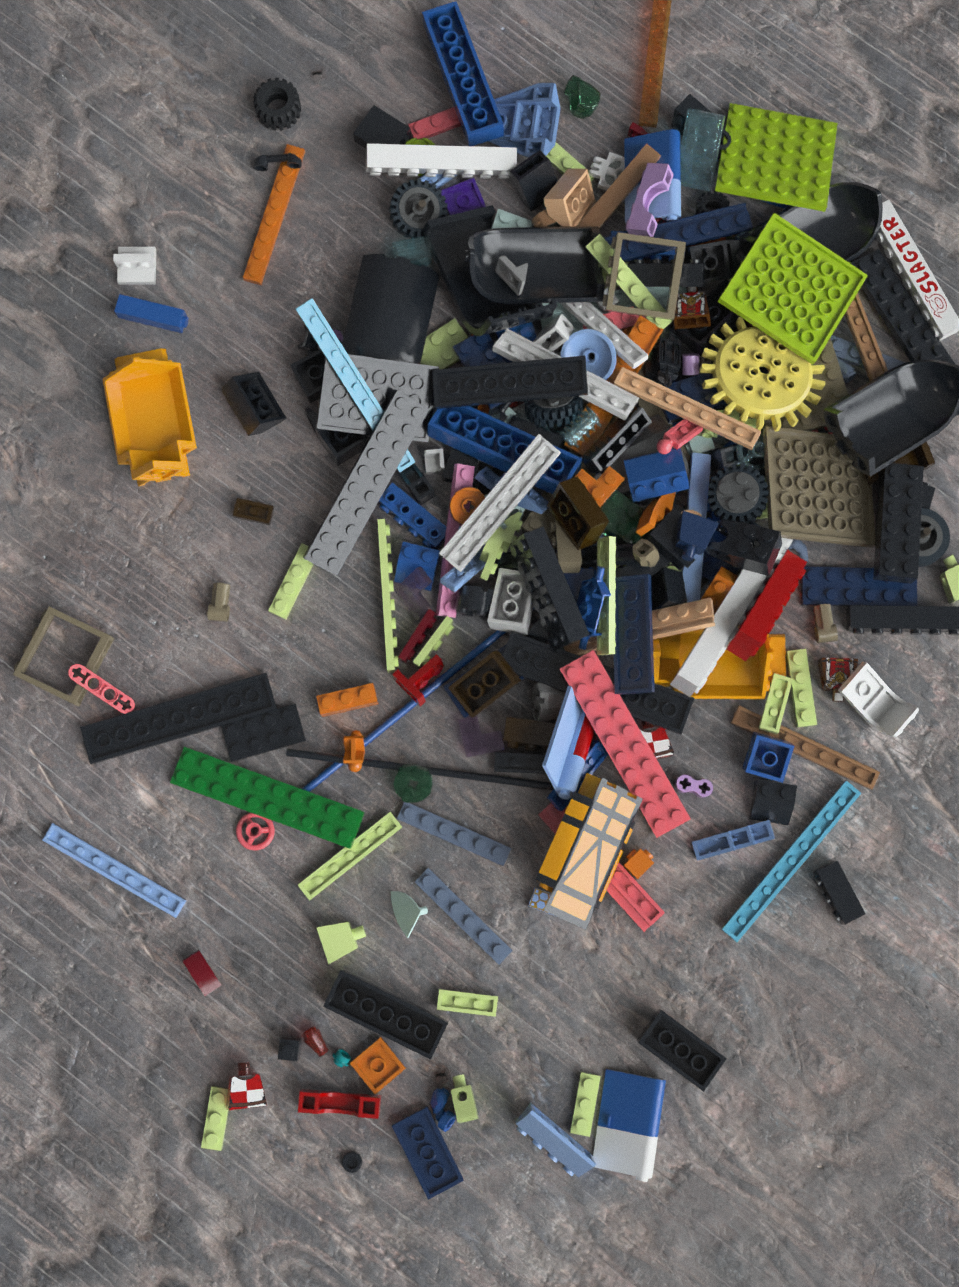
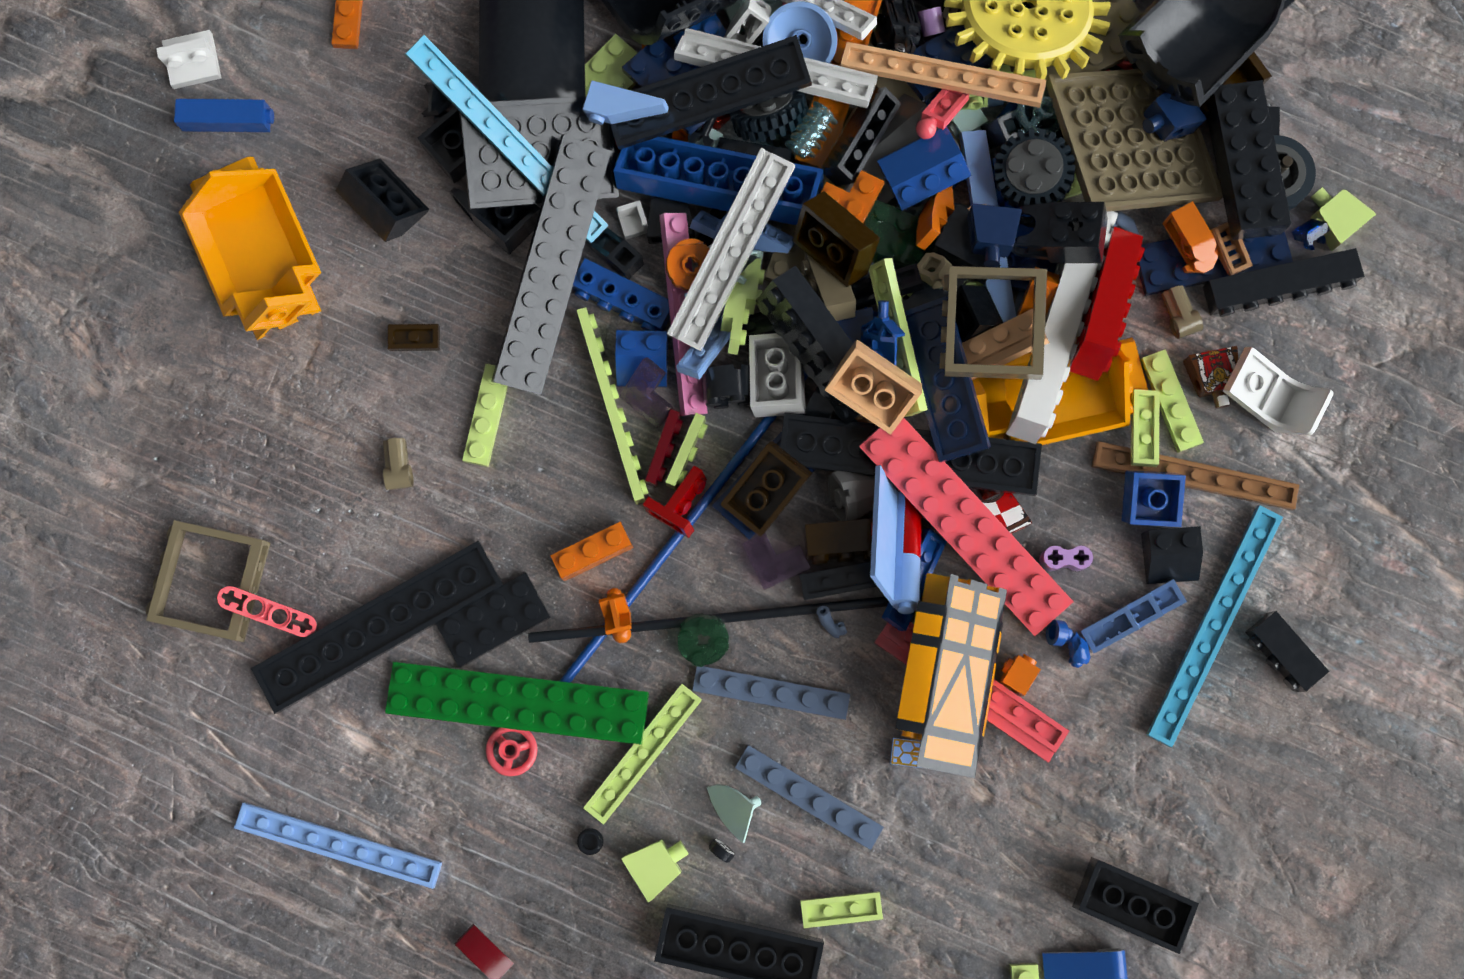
camera: 10 degrees left, 0 degrees up
(297, 910) = (590, 841): none -> black plate
(390, 939) = (721, 850): none -> black tile
(440, 376) = (619, 105): none -> light blue slope
(507, 792) = (827, 622): none -> sand blue arm
(578, 628) = (874, 387): none -> light nougat slope
(642, 602) = (1034, 371): none -> dark tan window
(675, 840) = (1059, 633): none -> blue arm
(844, 572) = (1192, 238): none -> orange piece
(849, 479) = (1171, 118): none -> dark blue torso
(865, 585) = (1238, 245): none -> medium nougat slope
(935, 586) = (1311, 231): none -> clear blue tile

